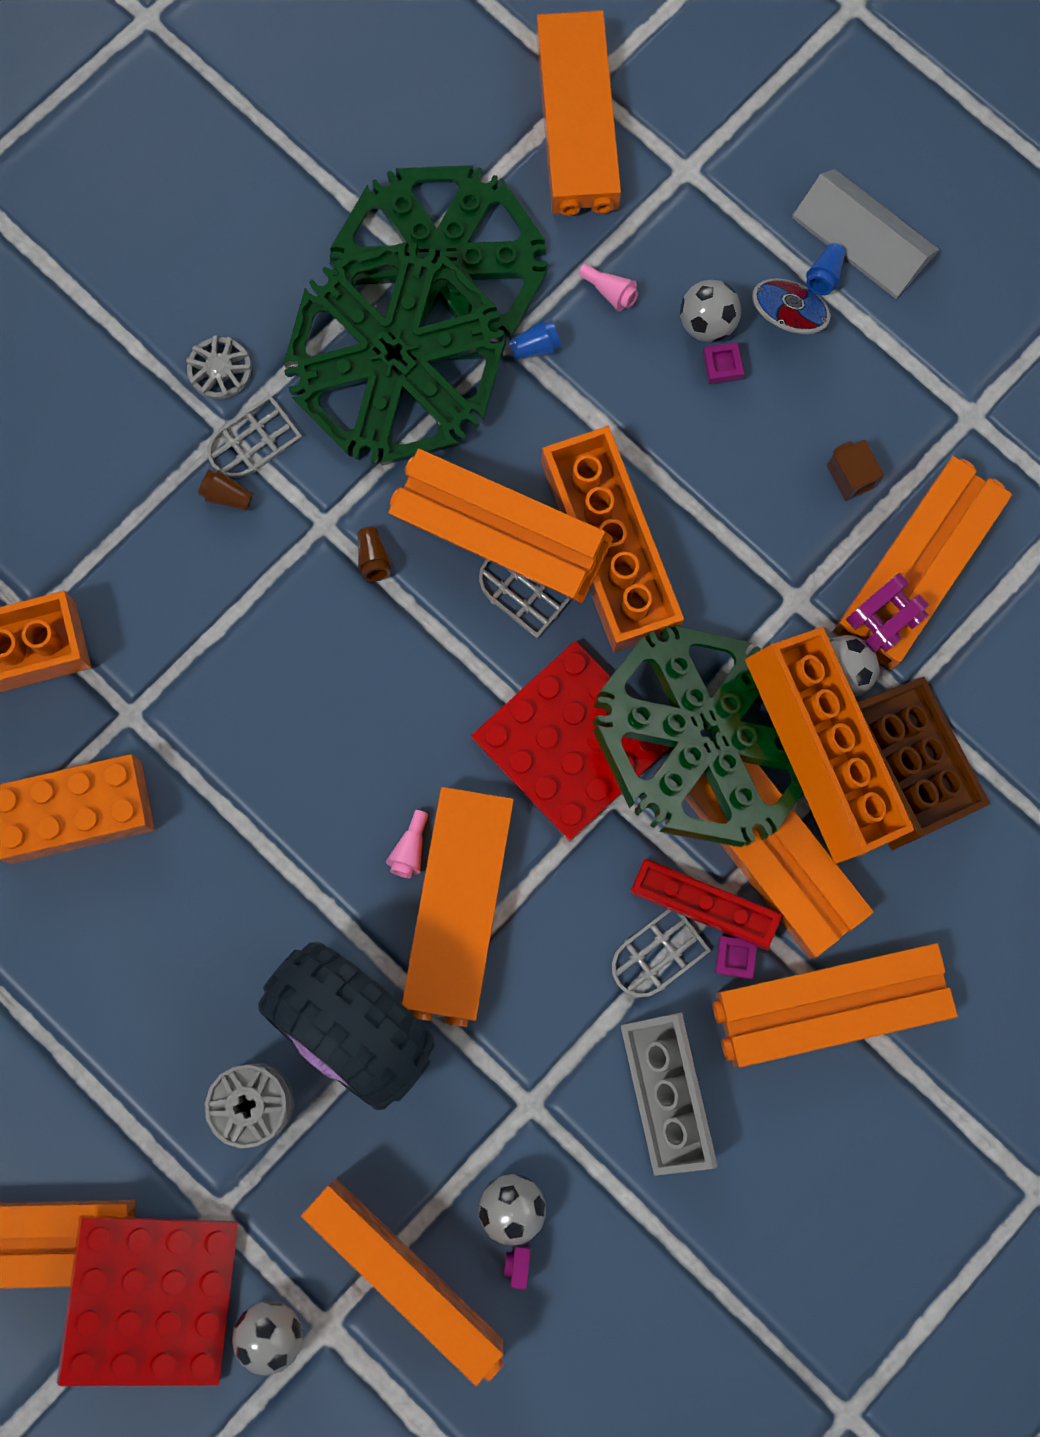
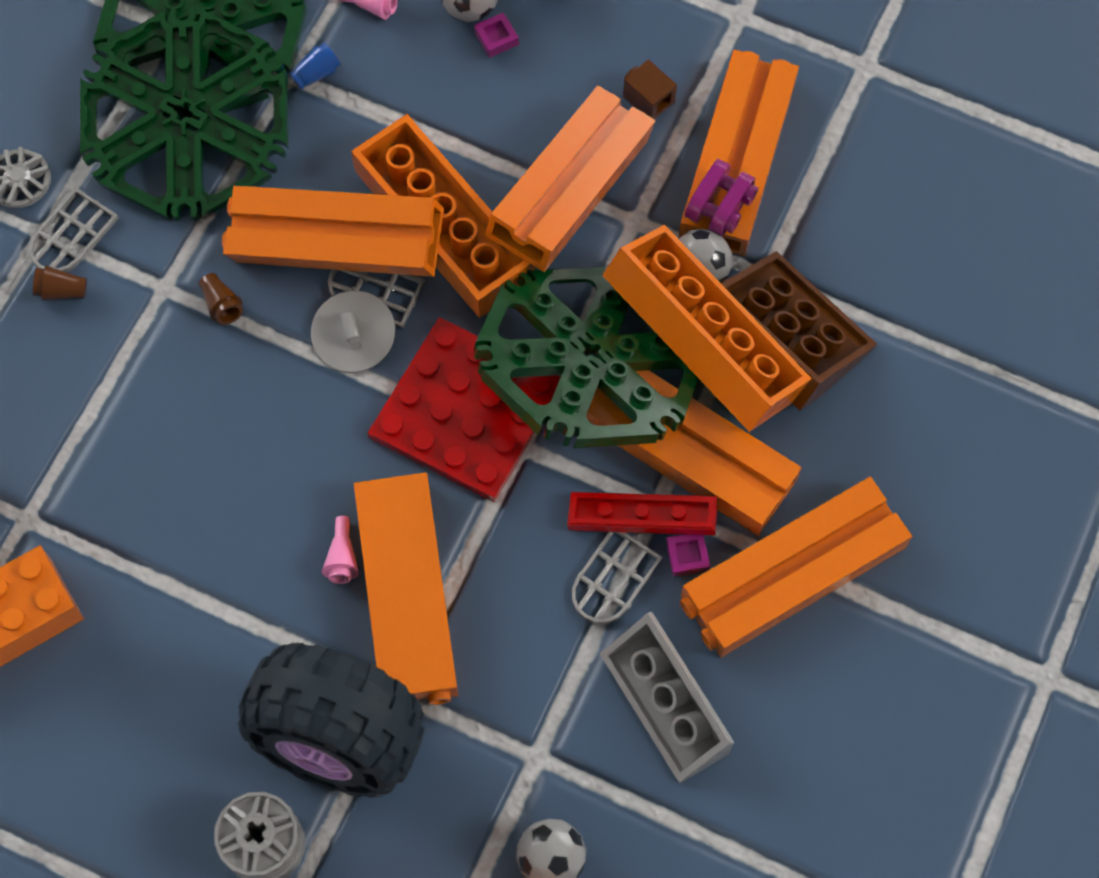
camera: 15 degrees left, 10 degrees down
(488, 627) = (353, 331): none -> light grey shield
(746, 543) = (569, 179): none -> orange brick

